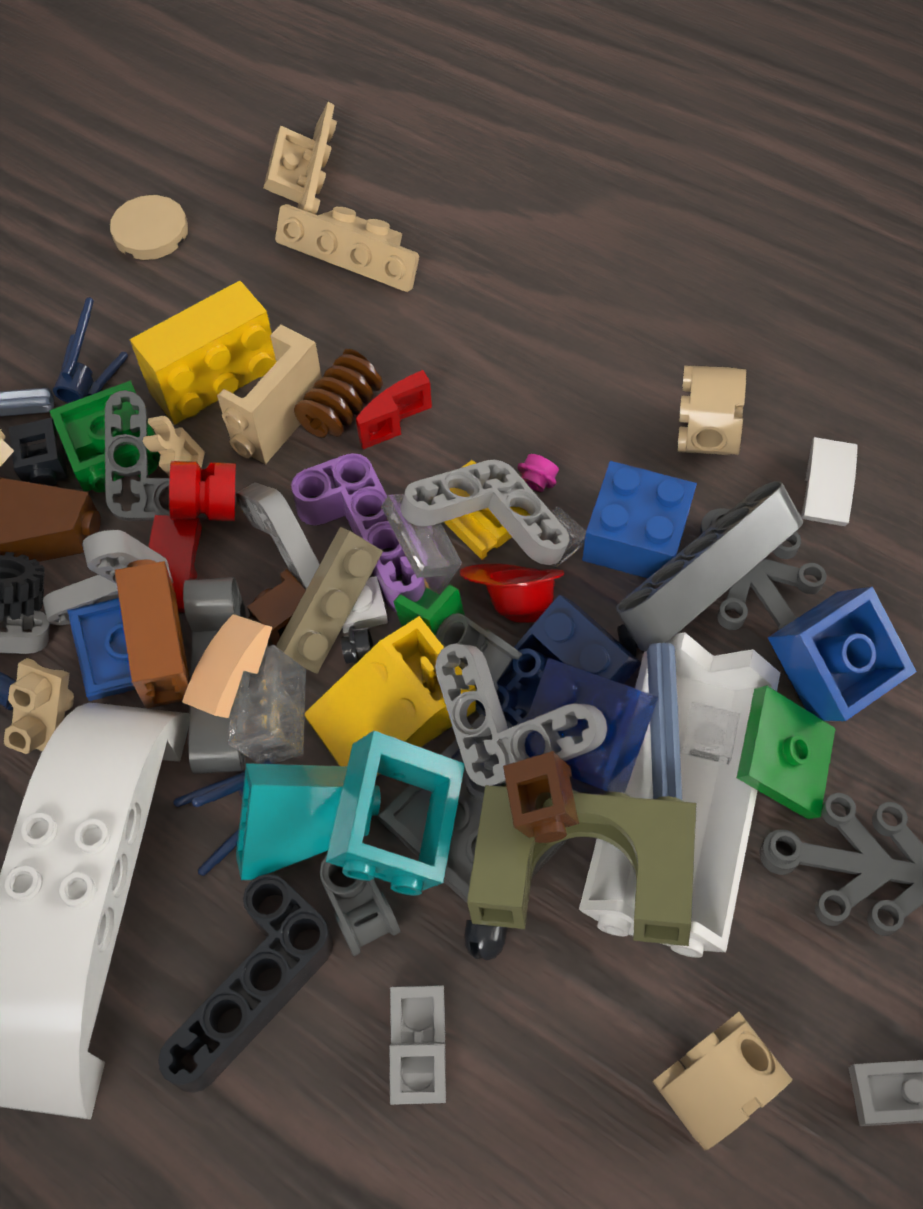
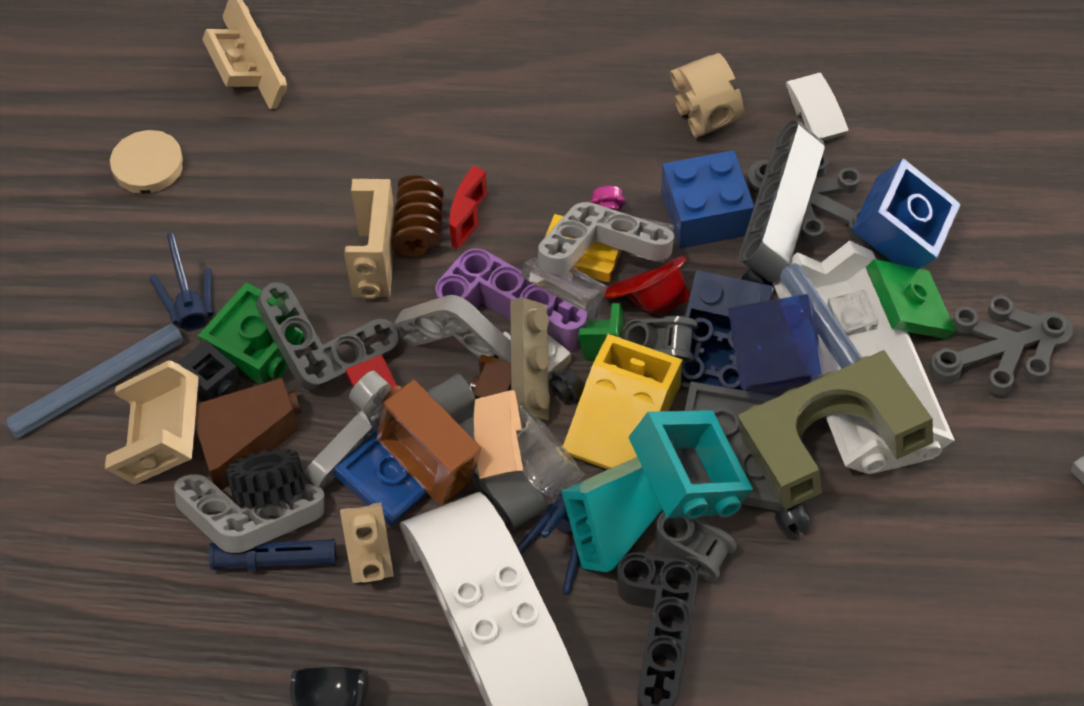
camera: 30 degrees left, 5 degrees down
(172, 443) = (322, 316): tan plate -> none
(202, 490) = (374, 331): red wheel -> none
(205, 350) = (293, 229): yellow brick -> none
(350, 243) = (331, 99): tan bracket -> none
(417, 1045) = (795, 609): light grey slope -> none
(505, 742) = (737, 377): light grey beam -> none
(530, 785) = (778, 385): reddish brown brick -> none
(722, 1081) = (1004, 511): tan brick -> none

